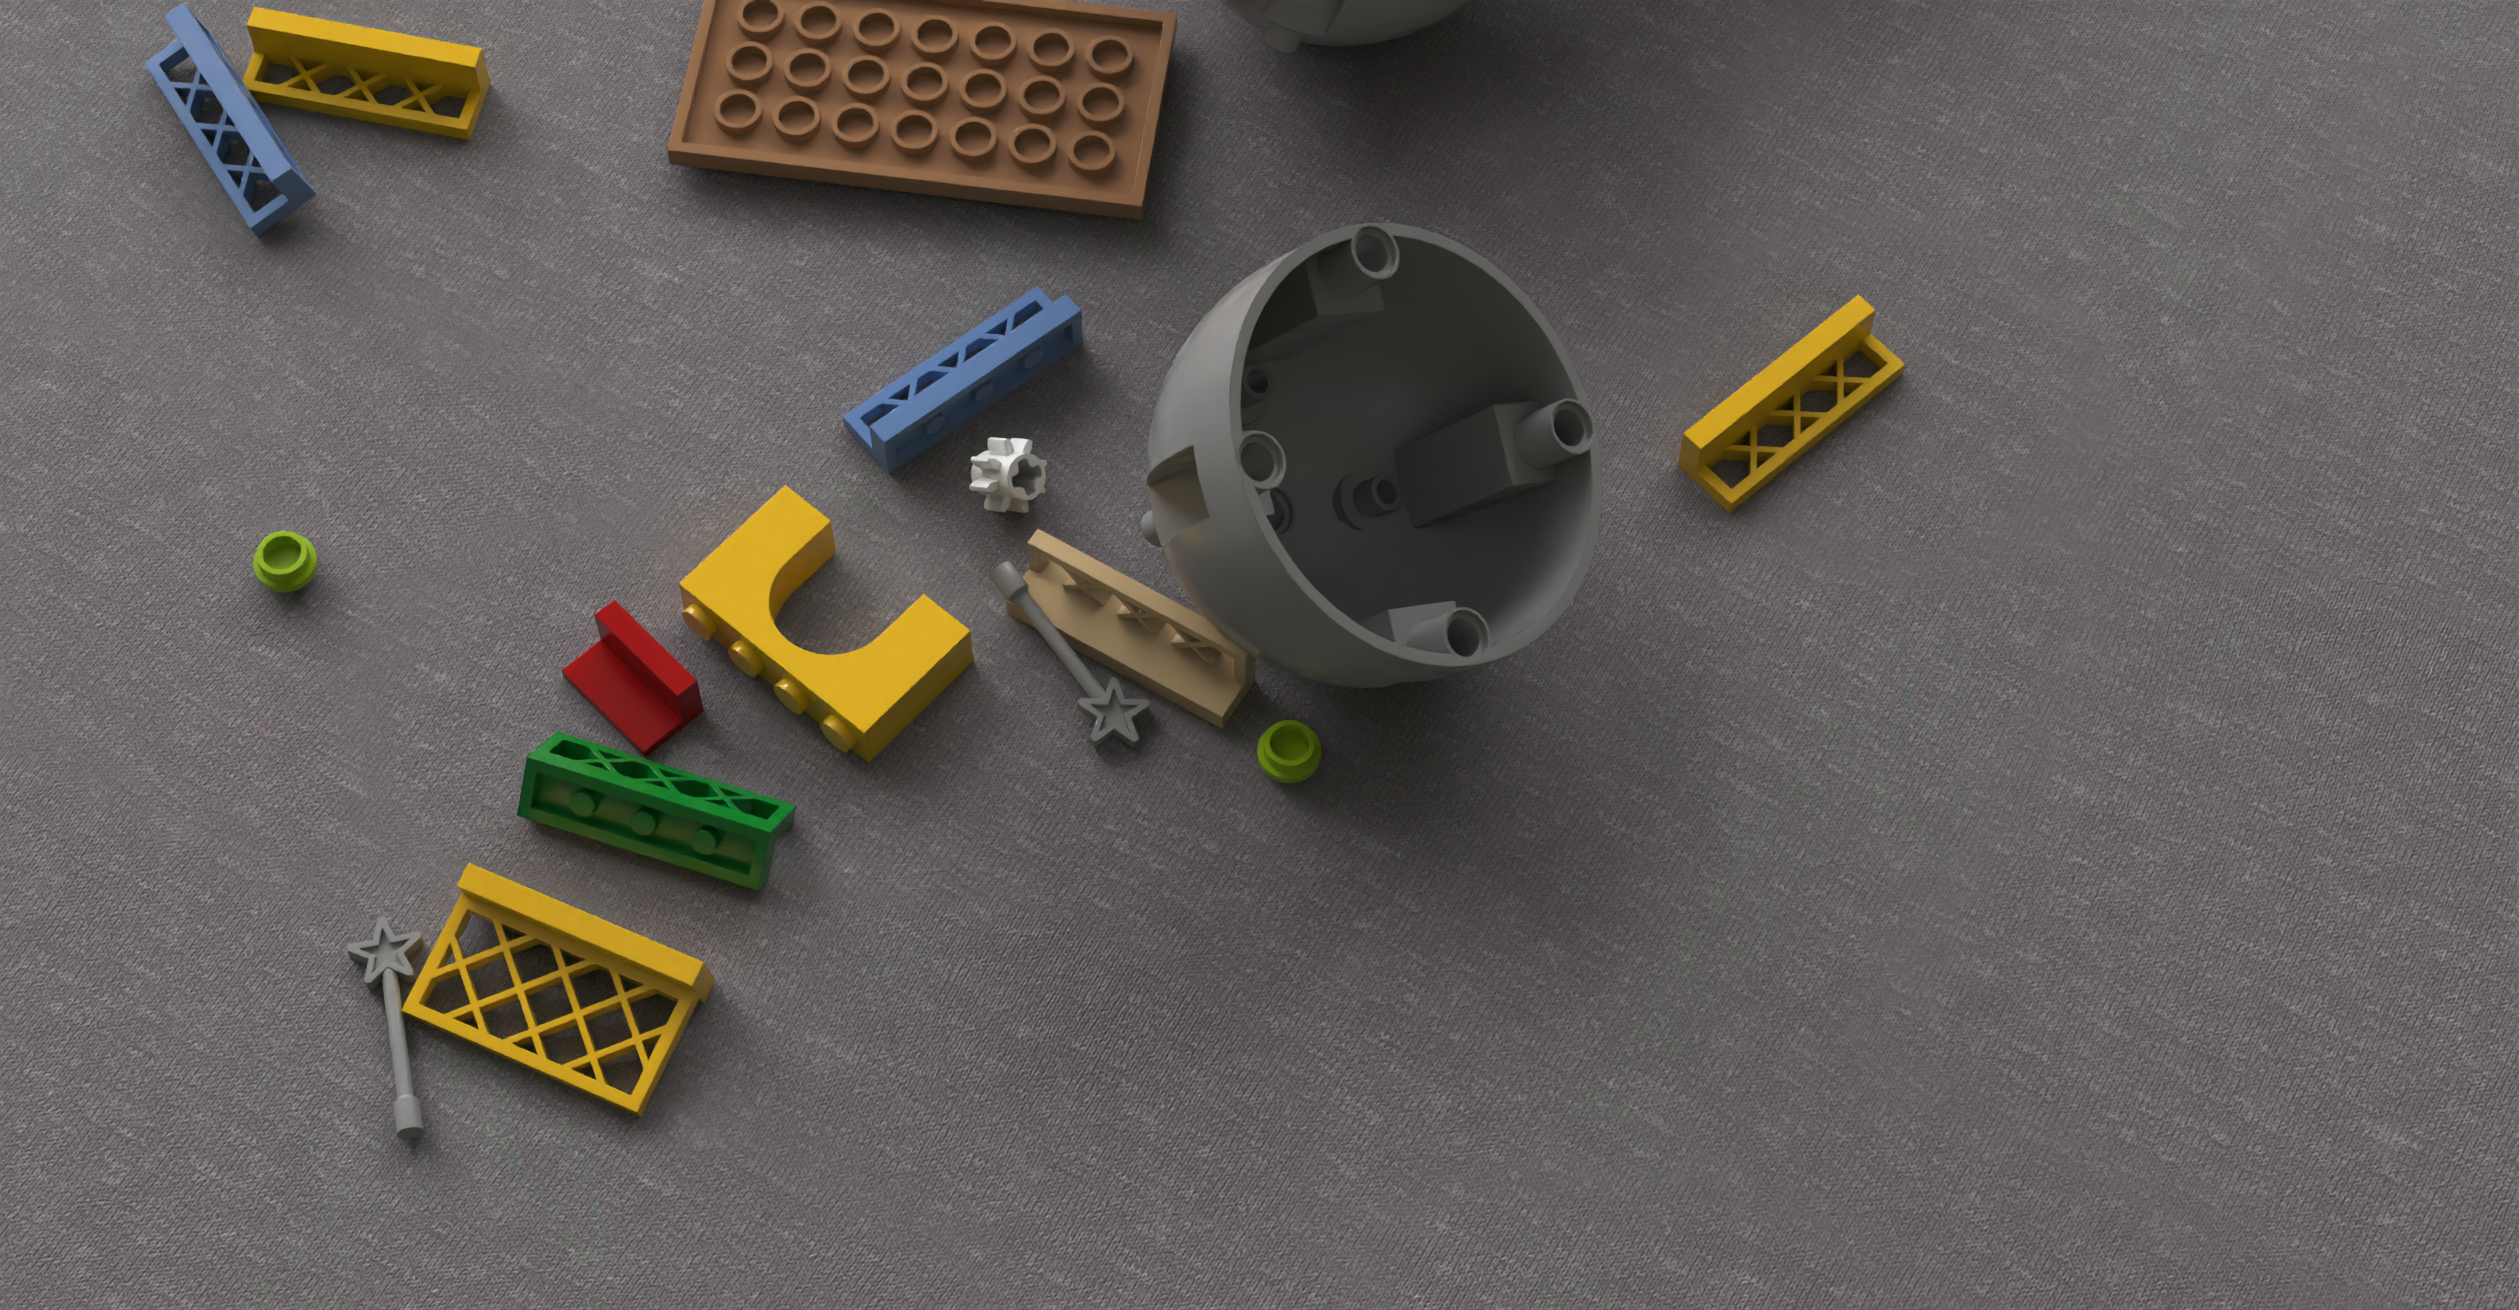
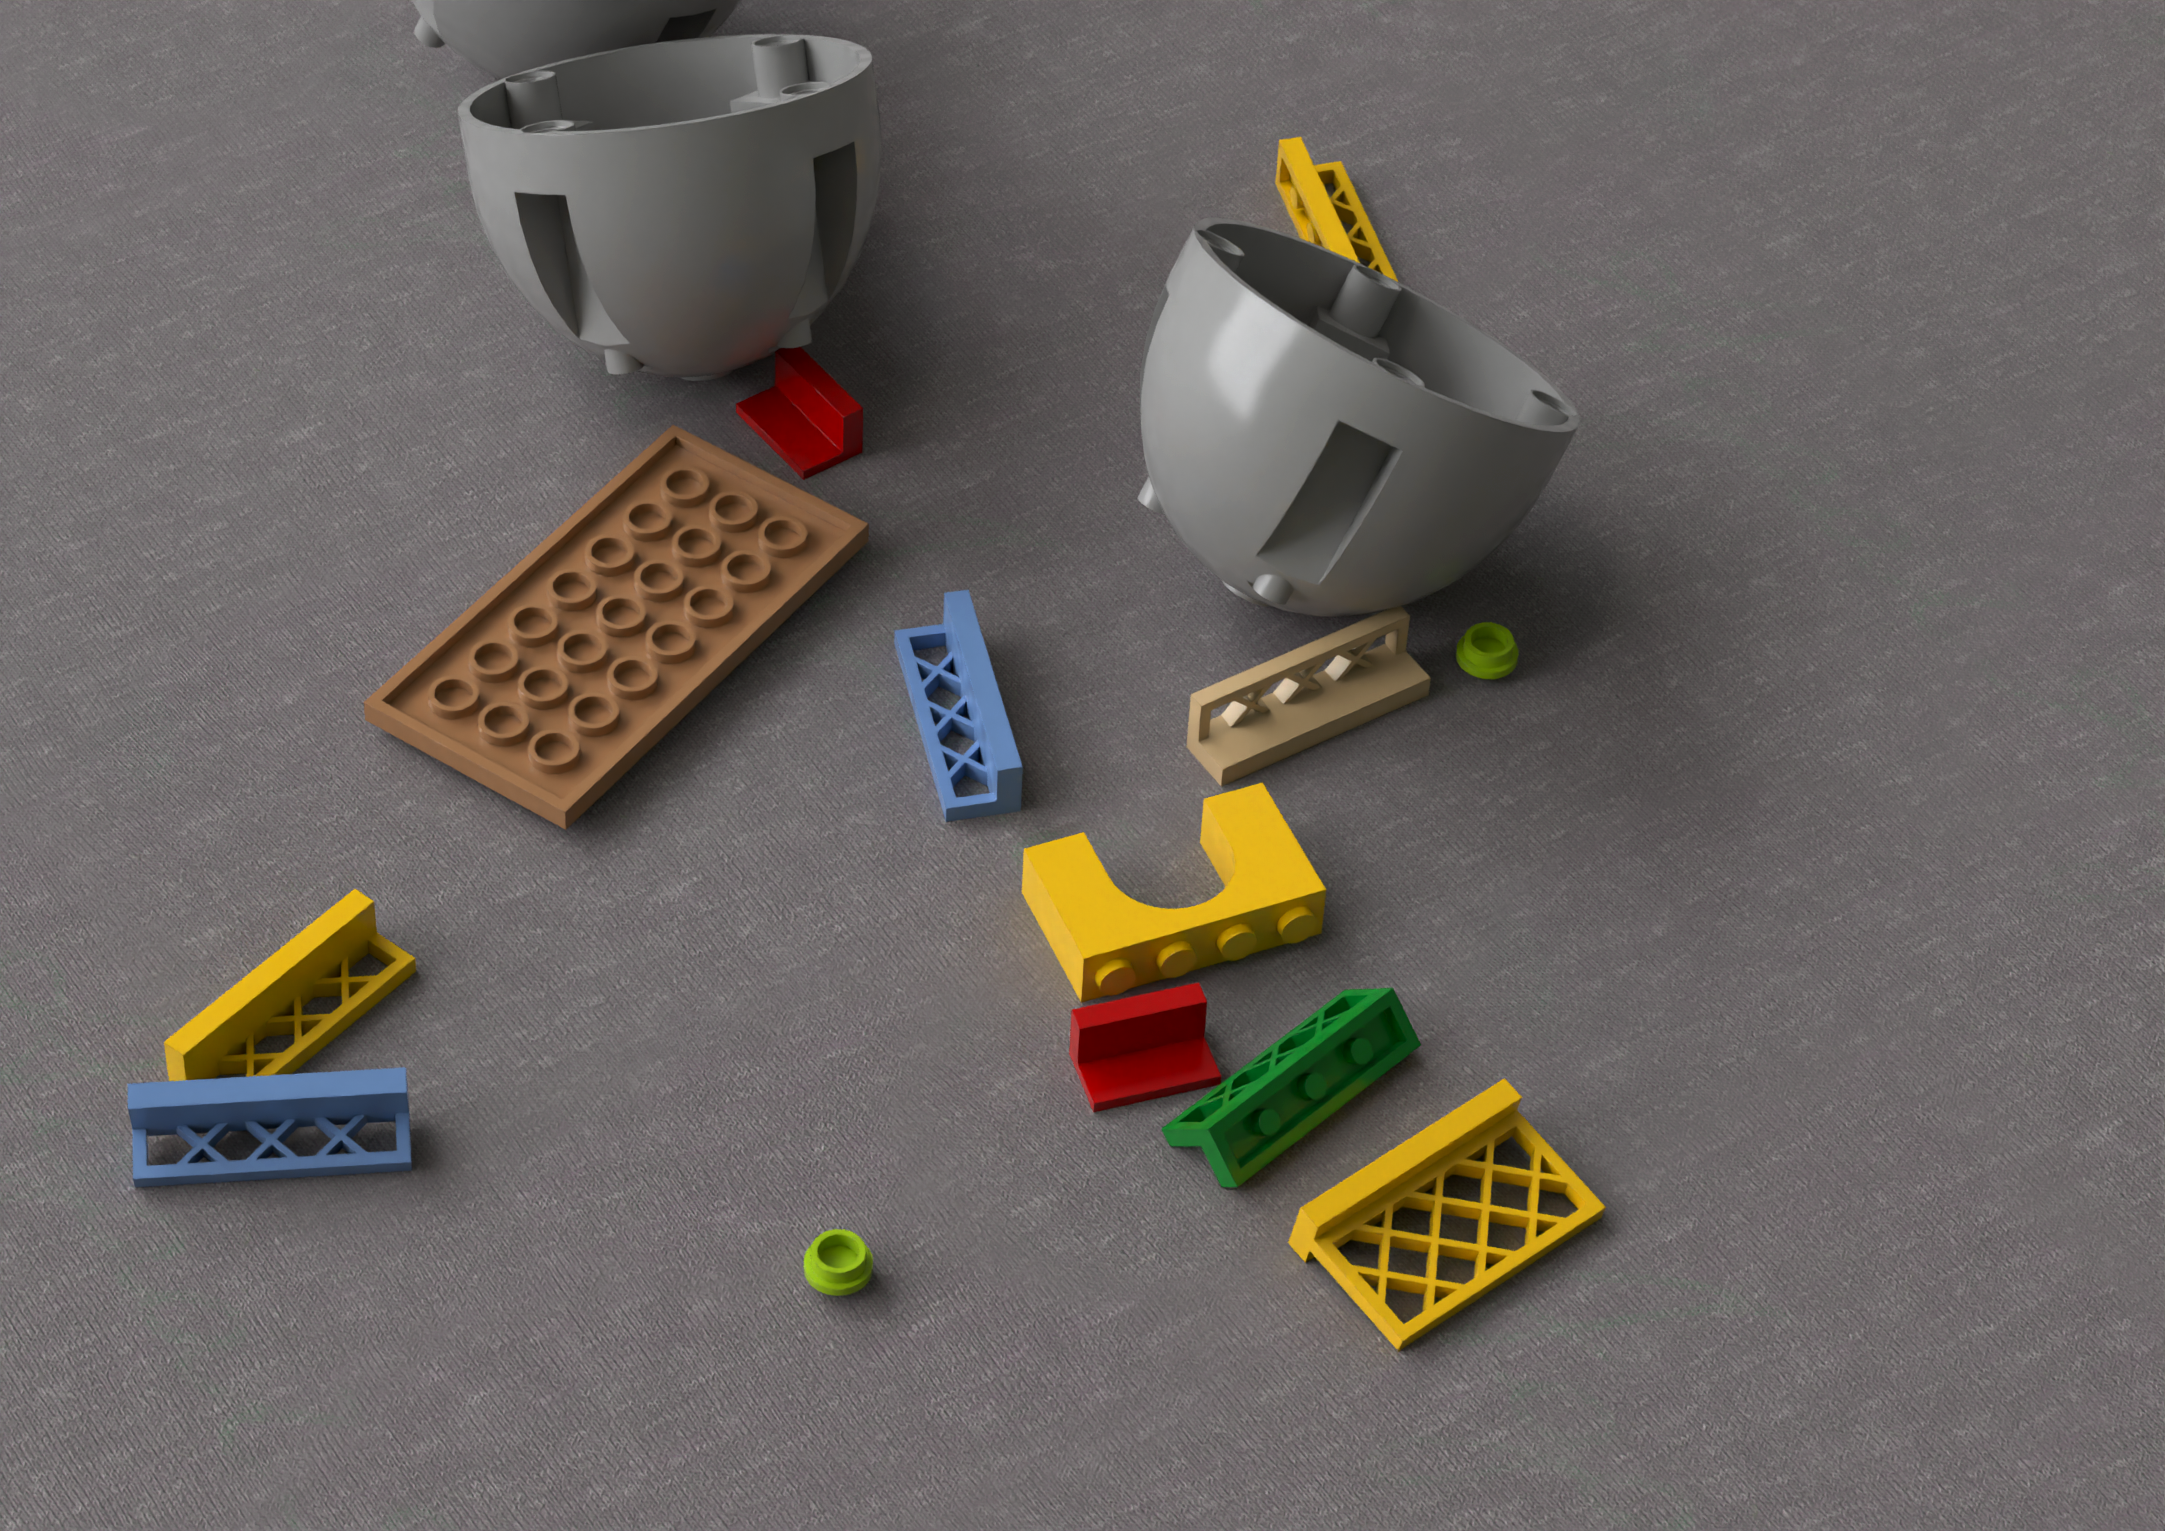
camera: 65 degrees left, 15 degrees down
(386, 962) = (1344, 1339): light grey piece -> none
(1008, 474) = (1098, 712): white gear -> none
(1107, 709) = (1369, 749): light grey piece -> none
(1263, 104) = (805, 415): none -> red panel

